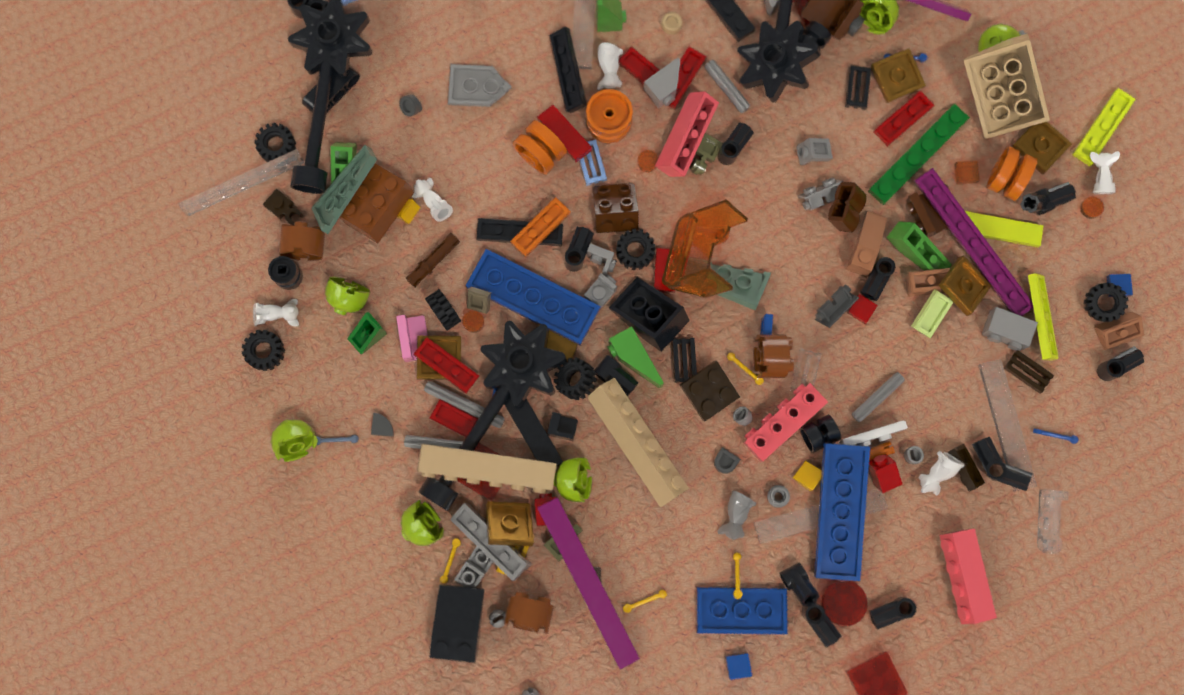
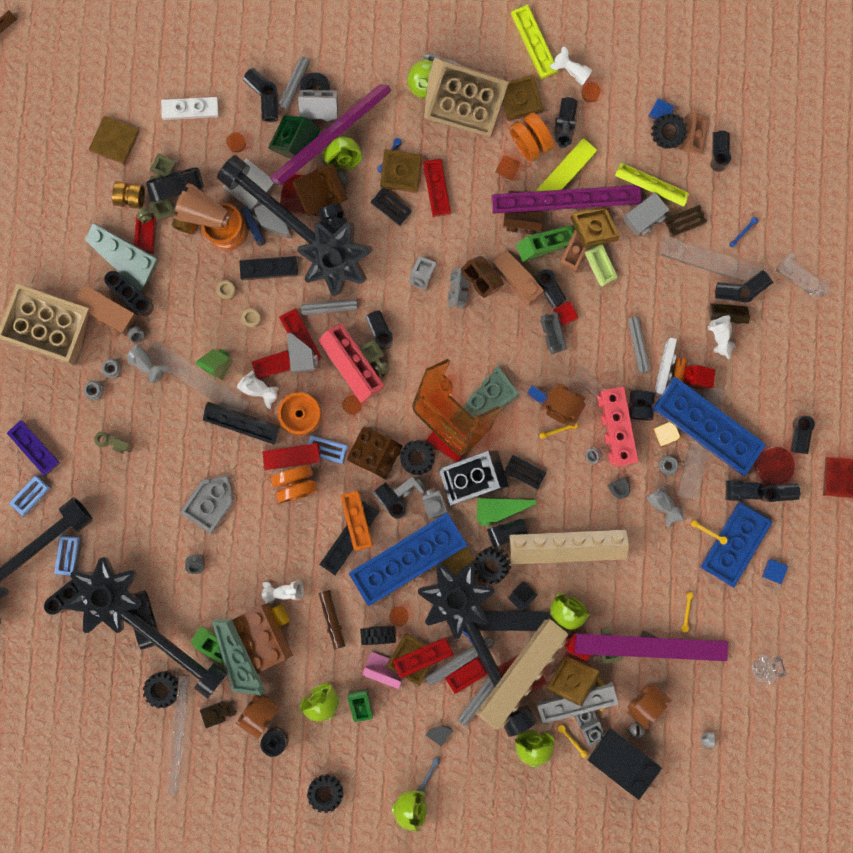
camera: 55 degrees left, 5 degrees up
(272, 312) = (299, 770): white animal -> none
(478, 300) = (385, 602): dark tan tile -> none
(709, 391) = (560, 468): dark brown plate -> none
(916, 454) = (697, 343): light grey hinge -> none
(919, 154) = (471, 194): green plate -> none
(967, 576) = (808, 364): coral brick -> none

